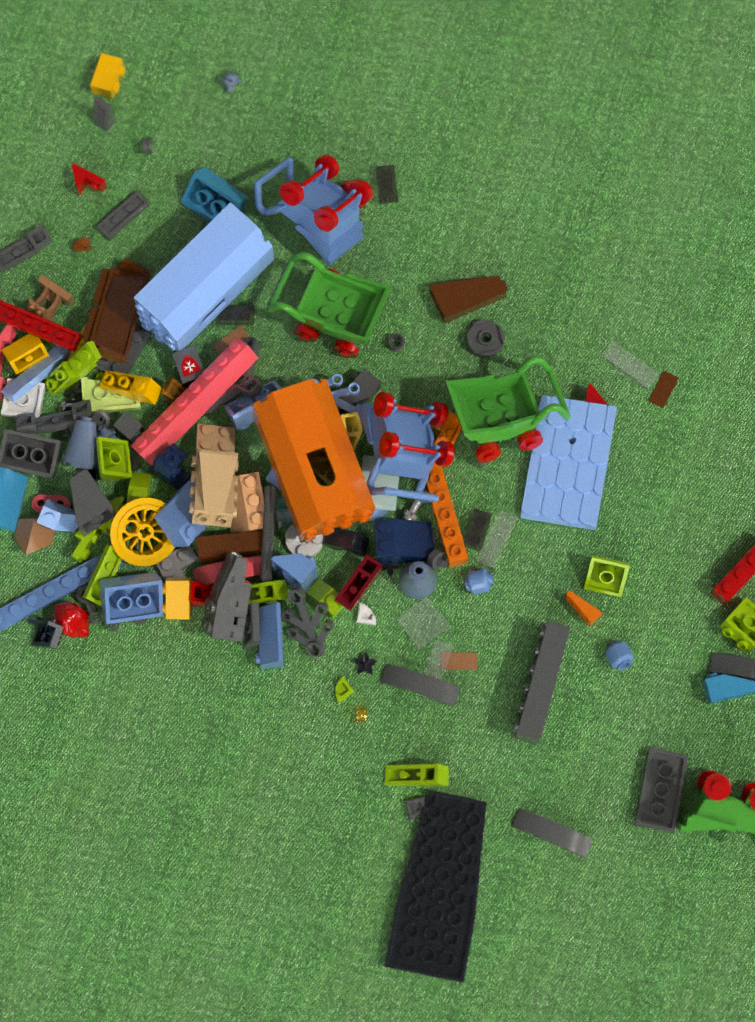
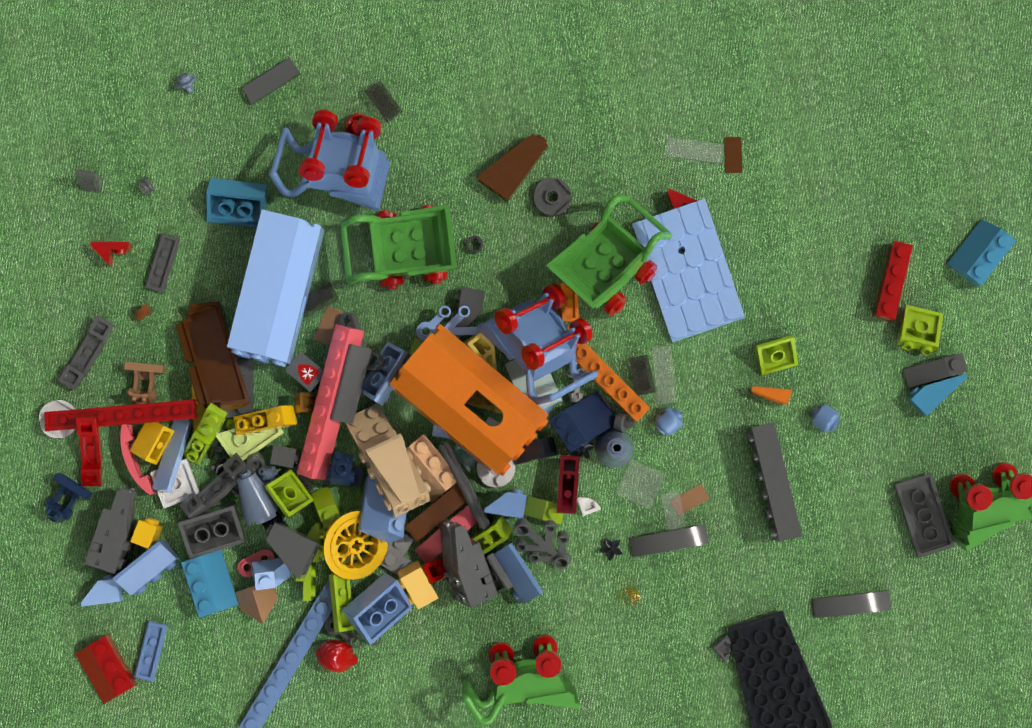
camera: 30 degrees left, 10 degrees up
(47, 633) = (322, 681): black bracket -> none
(107, 76) = (71, 140): yellow brick -> none
(221, 394) = (351, 384): none -> dark grey slope
(233, 734) = (525, 680): none -> bright green piece
(302, 118) = (271, 81): none -> dark grey tile
(343, 690) = (604, 582): lime tile -> none
(417, 775) = (711, 621): lime slope -> none

